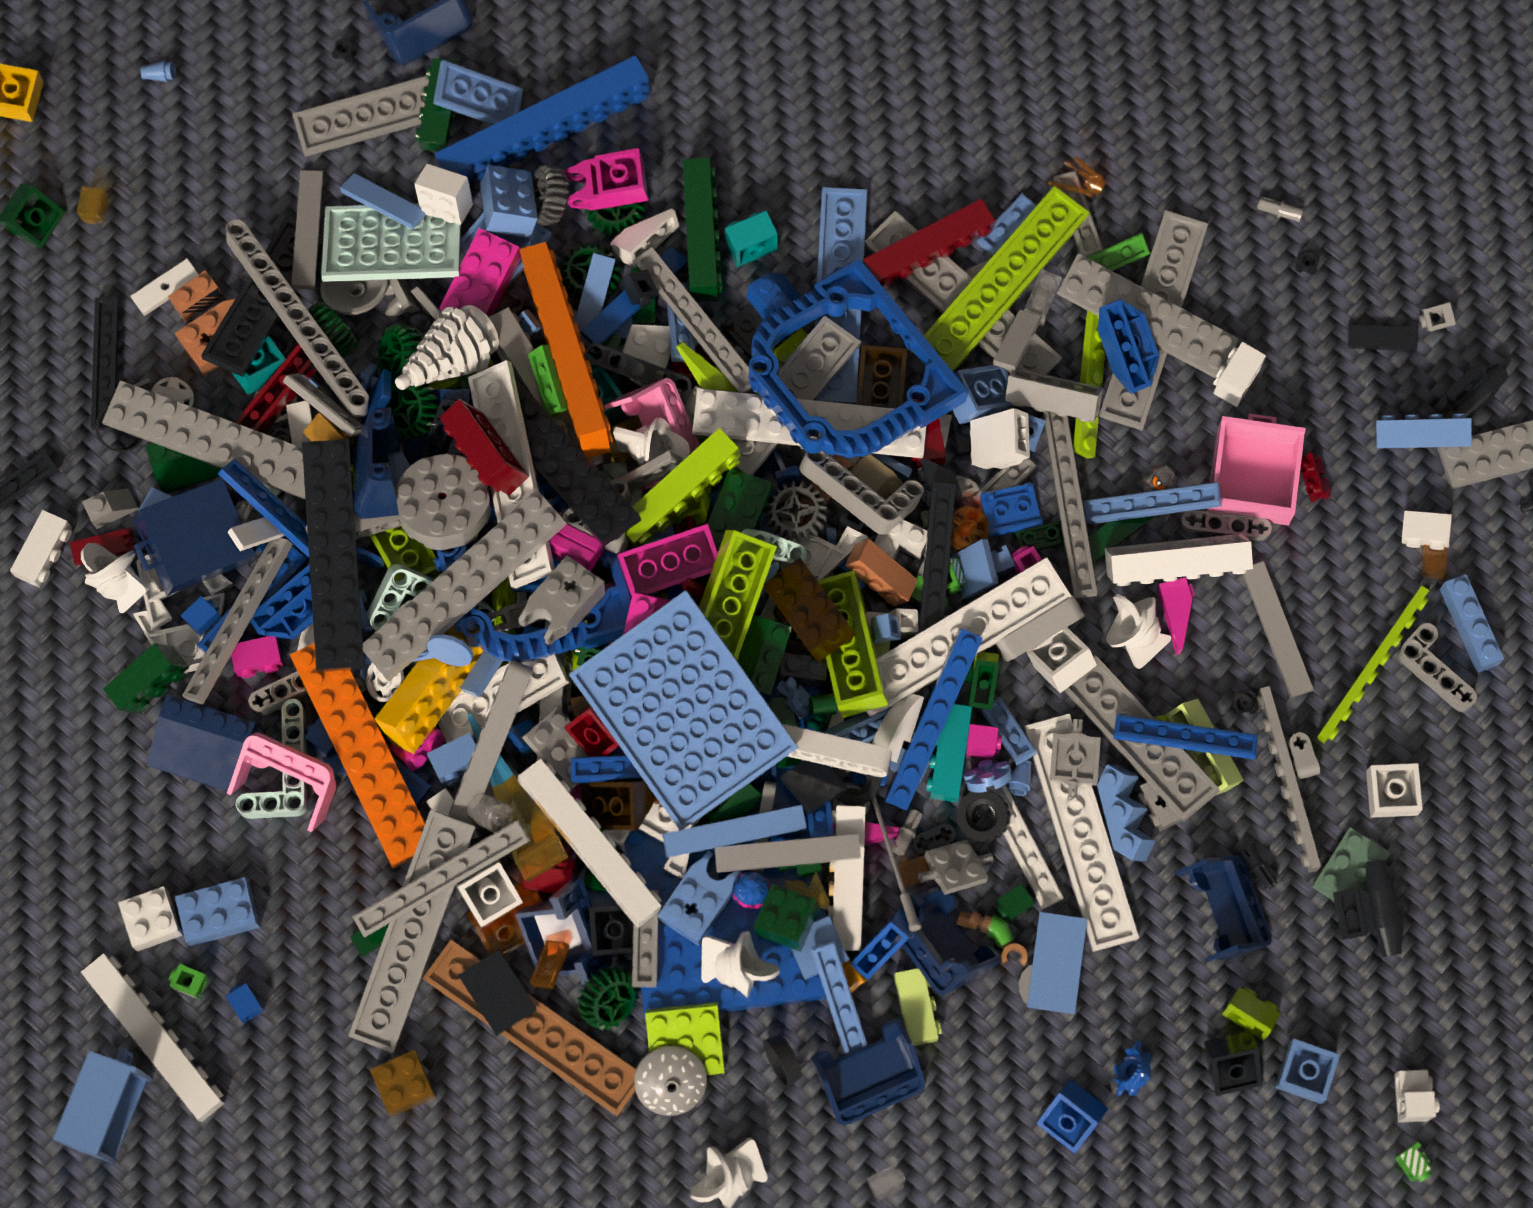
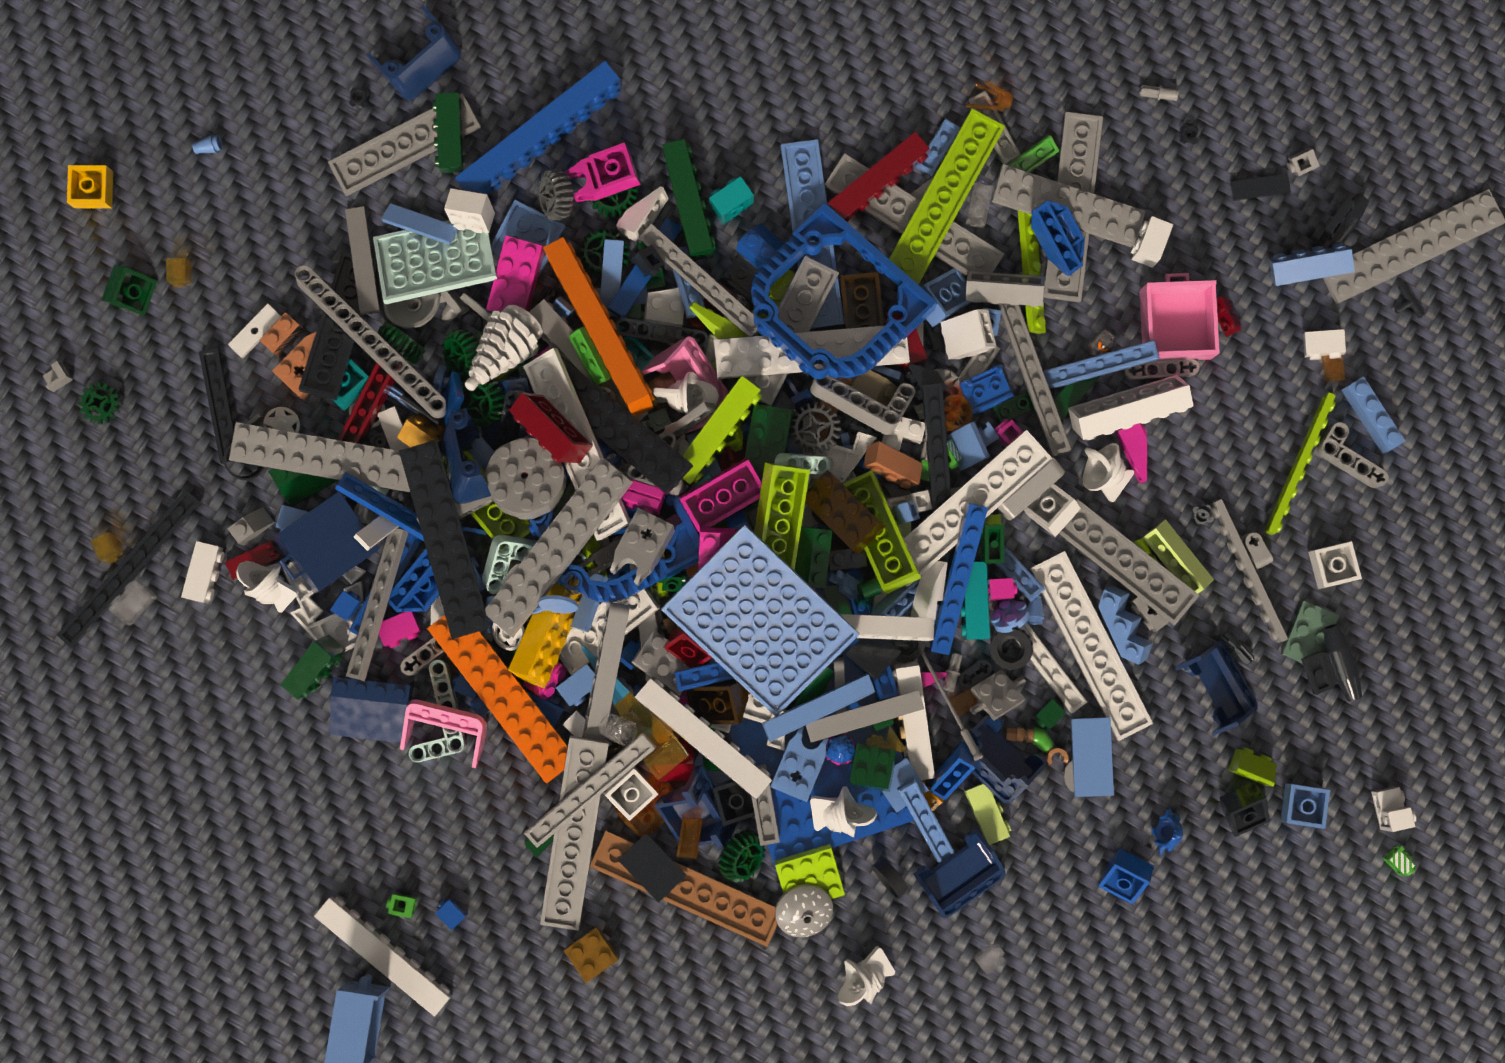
camera: 15 degrees left, 10 degrees up
(150, 919) = (360, 861): white brick -> none
(217, 912) = (413, 844): medium blue brick -> none
(323, 404) = (409, 412): light grey tile -> none
(476, 94) = (478, 118): medium blue tile -> none
(508, 201) = (524, 206): medium blue brick -> none
(693, 588) = (747, 514): dark red axle -> none
(1017, 340) = (966, 247): light grey tile -> none
(1075, 759) = (1077, 589): light grey plate -> none
(1185, 736) = (1164, 556): blue tile -> none
(1277, 630) = (1219, 450): light grey tile -> none

